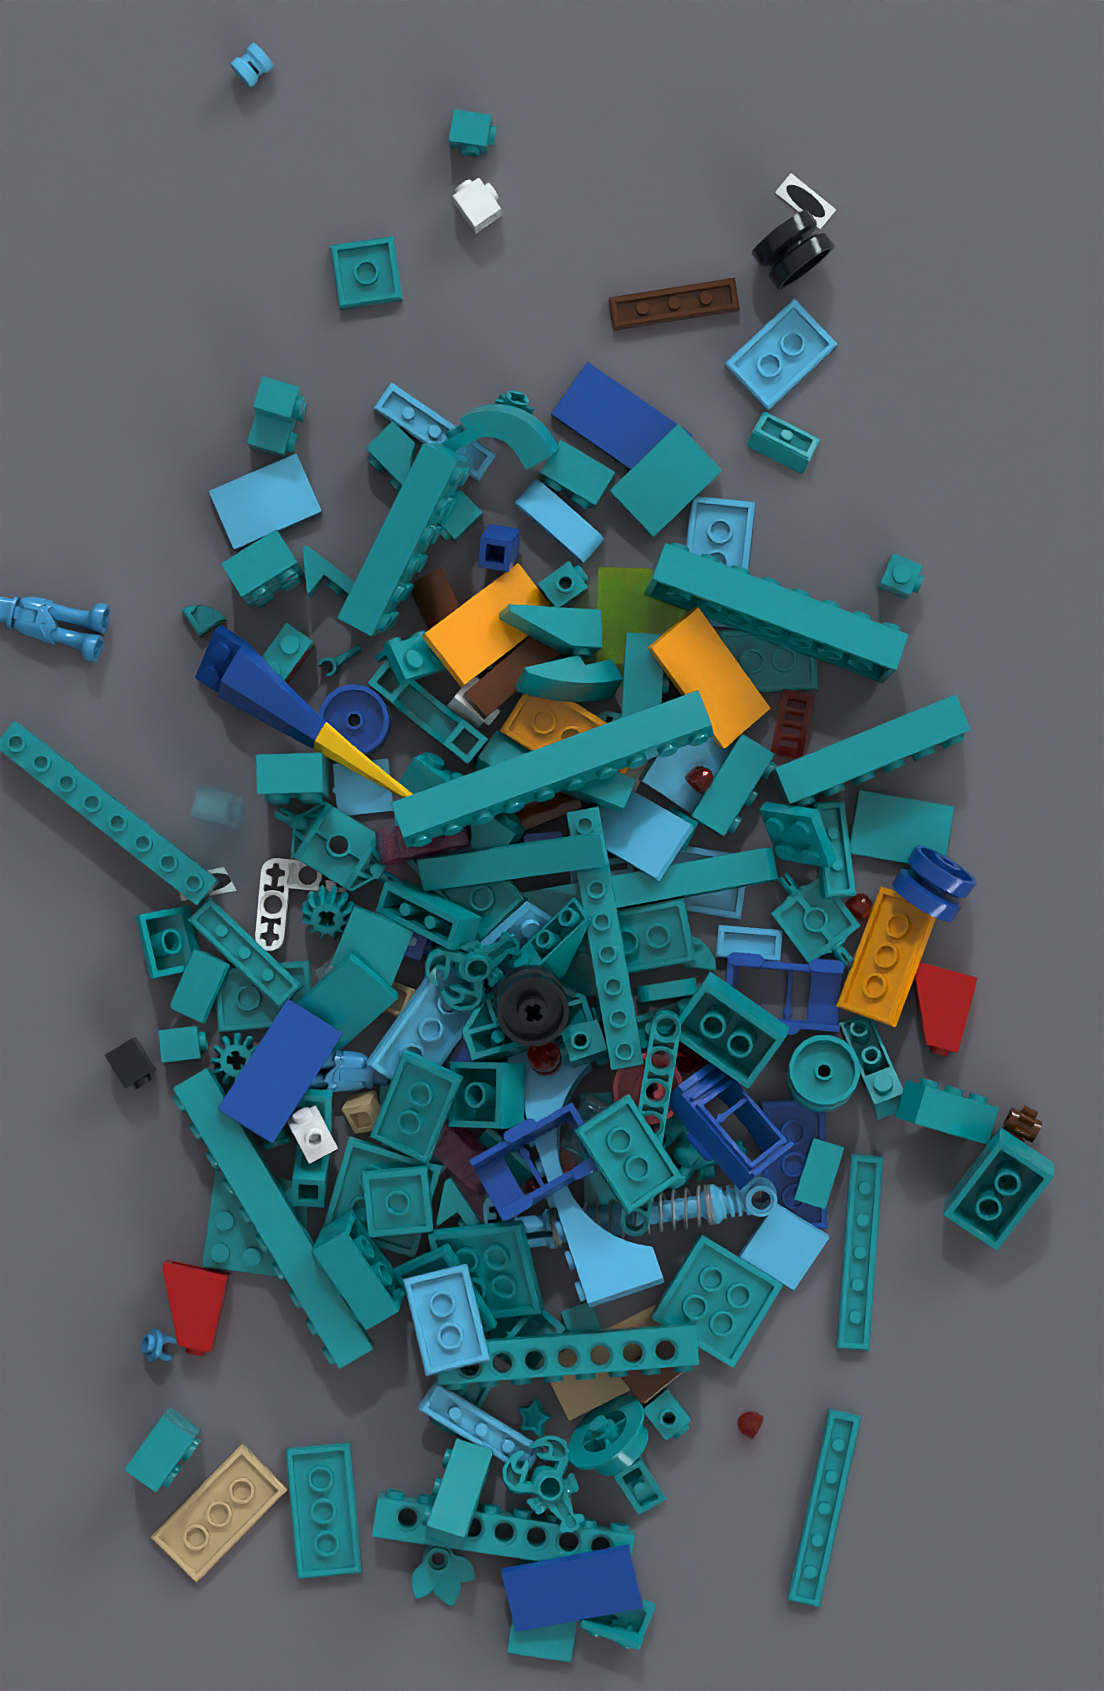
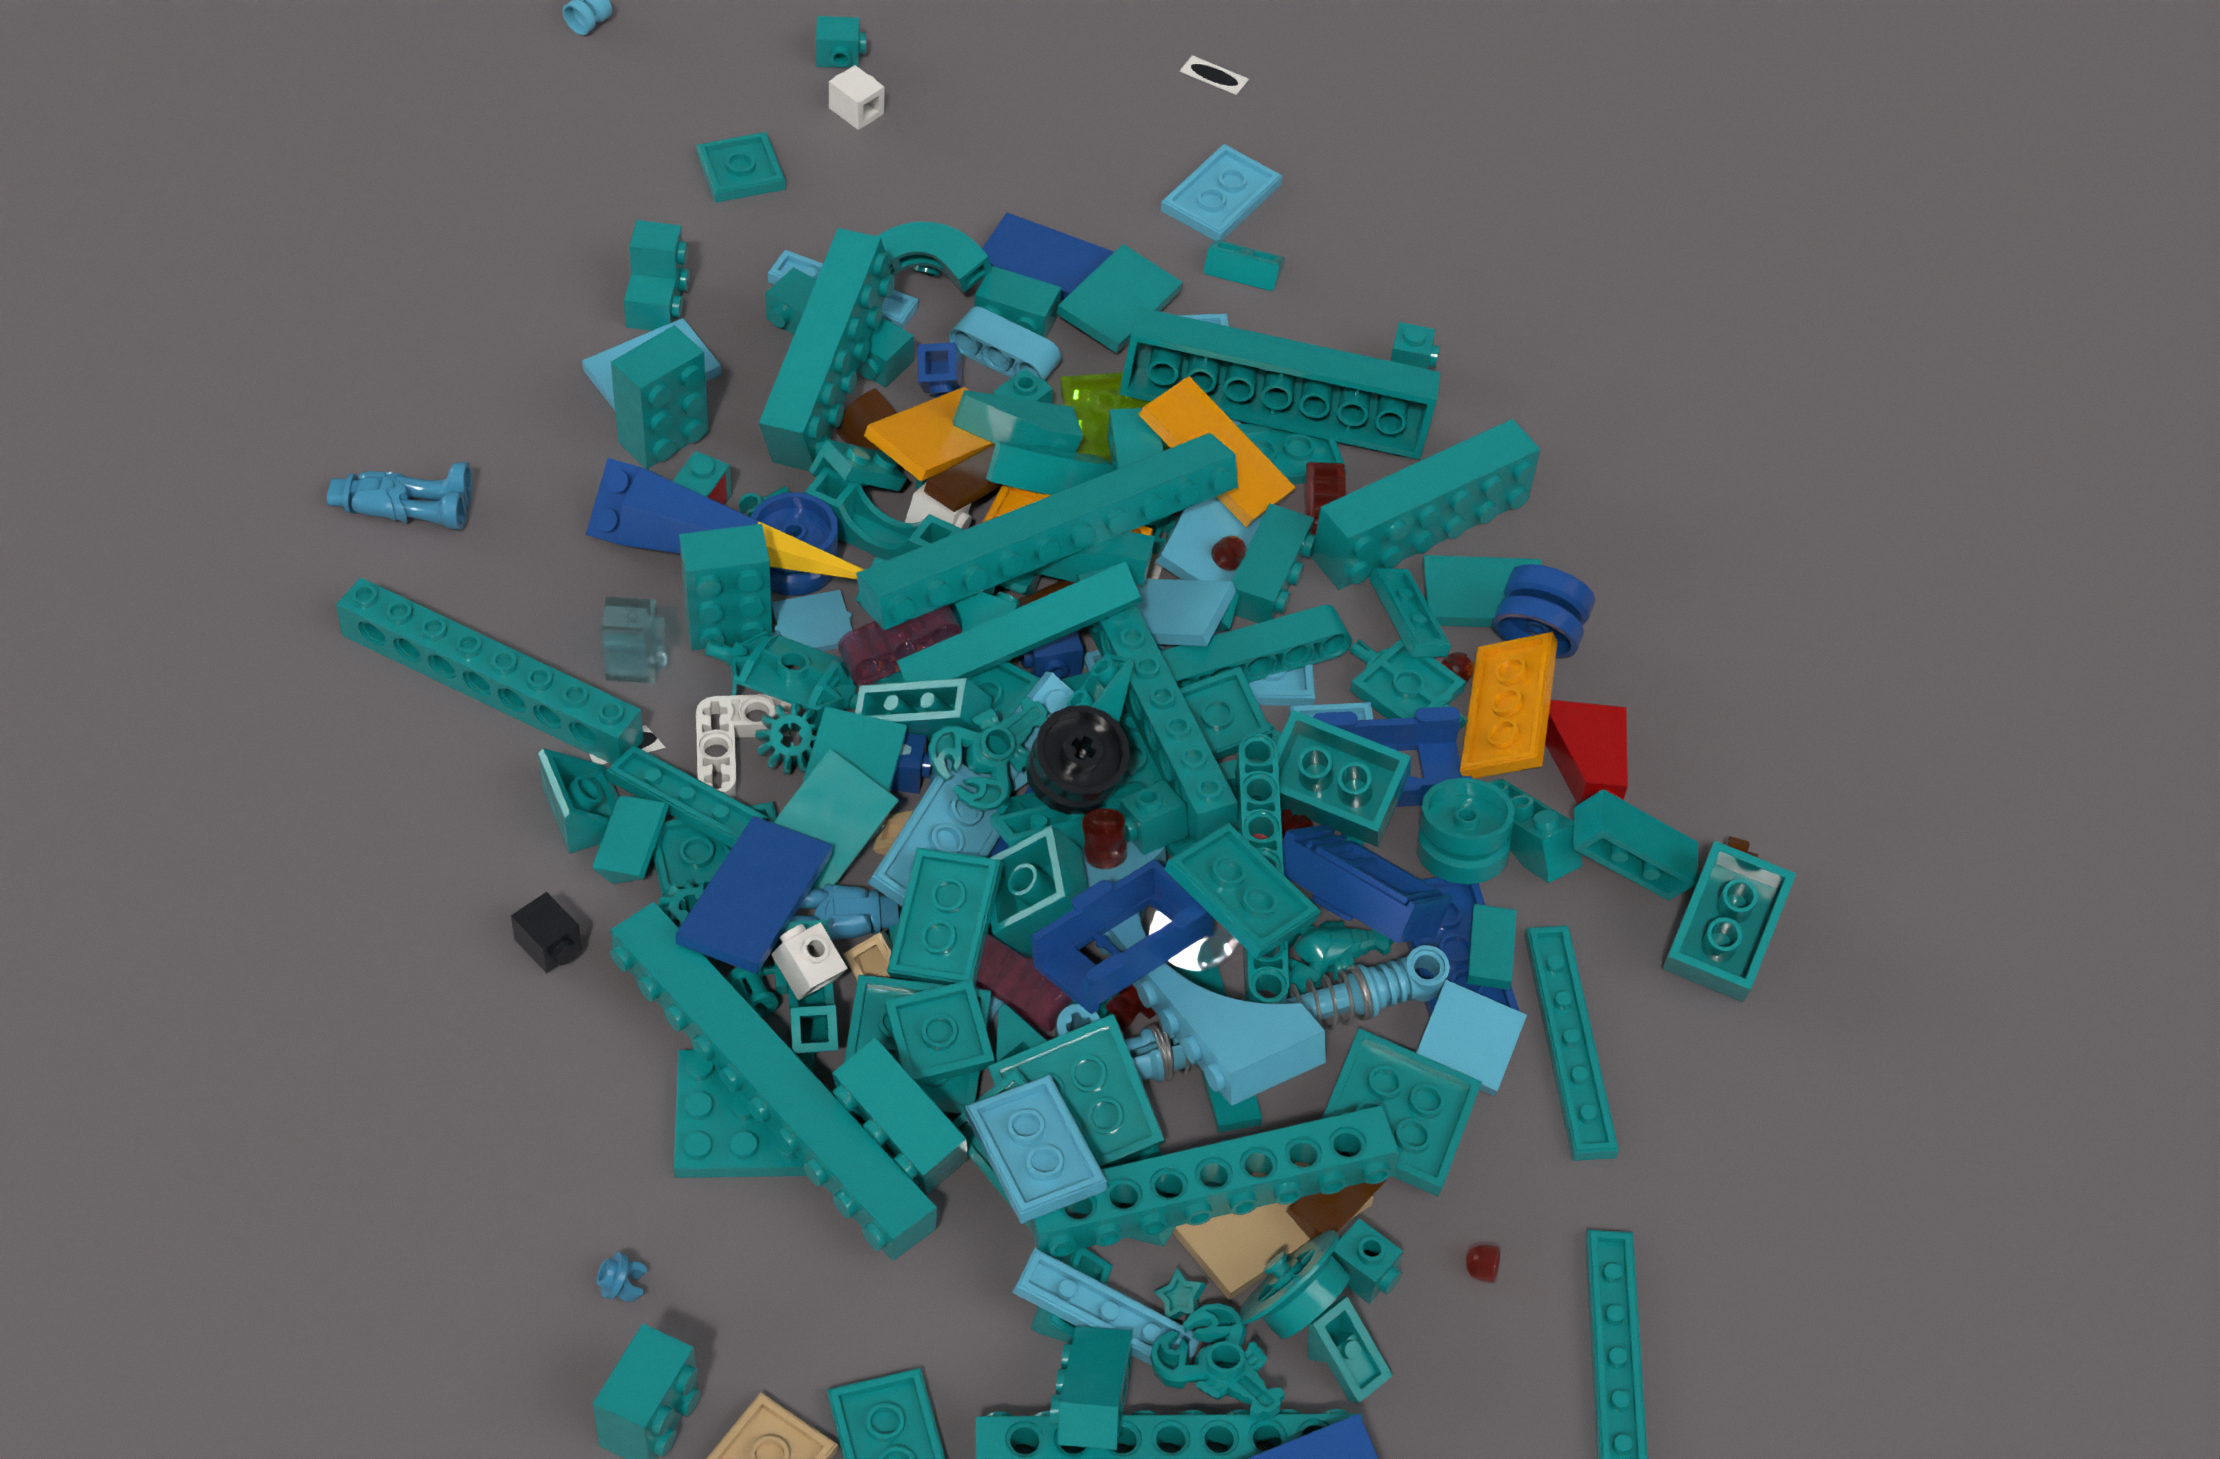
camera: 20 degrees left, 35 degrees down
(182, 1043) = (610, 903): teal brick -> none
(195, 1304) = (671, 1212): red slope -> none
(203, 618) = (583, 481): teal tile -> none
(319, 569) = (732, 415): teal slope -> none
(674, 304) = (1092, 163): reddish brown tile -> none
(792, 249) = (1213, 90): black wheel -> none
(797, 834) = (1365, 582): teal plate -> none

